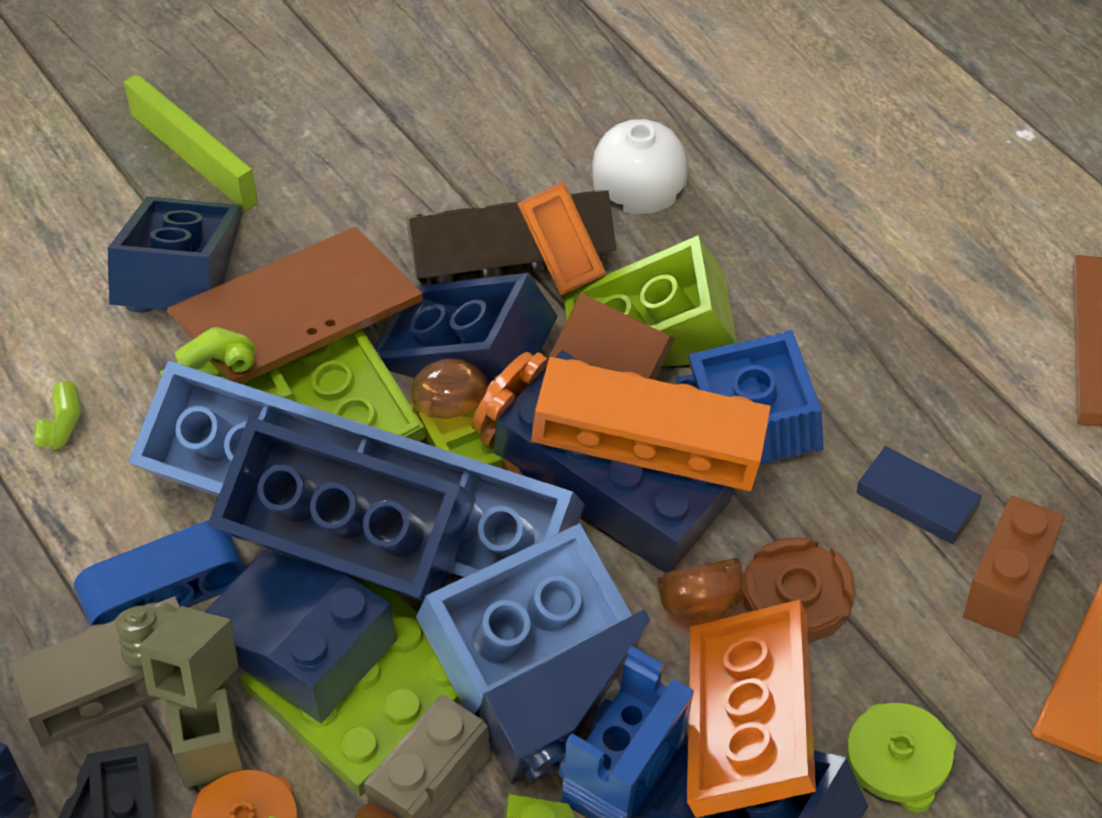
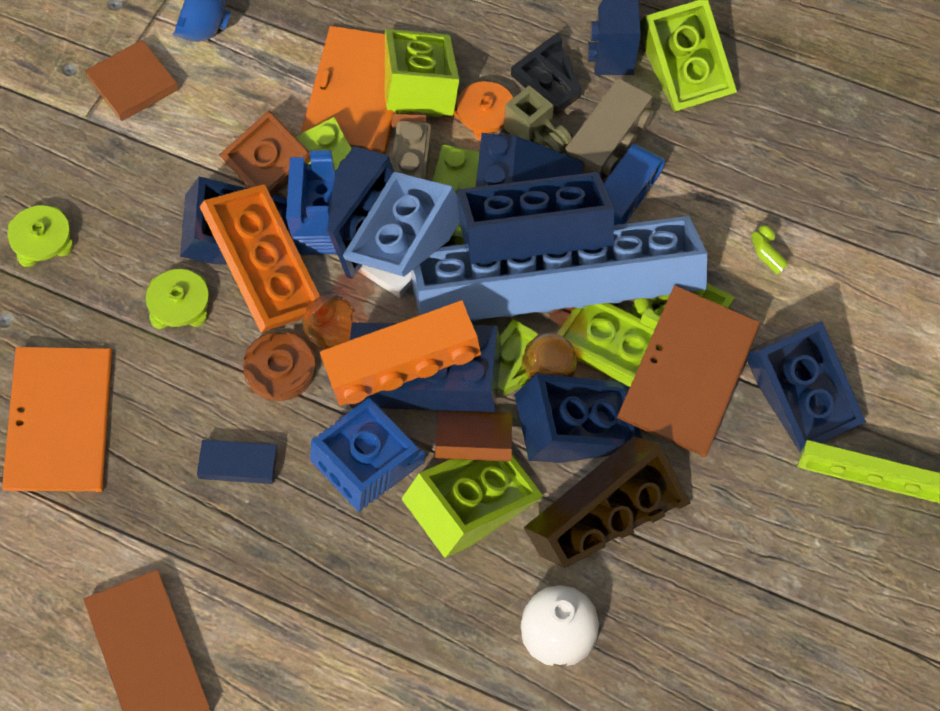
camera: 145 degrees right, 10 degrees up
(180, 650) = (558, 122): olive brick -> none
(219, 344) = (698, 293): lime arm -> none
(504, 392) = (507, 361): orange piece -> none
(561, 238) = (558, 500): orange tile -> none
(1013, 566) = (156, 427): dark orange brick -> none

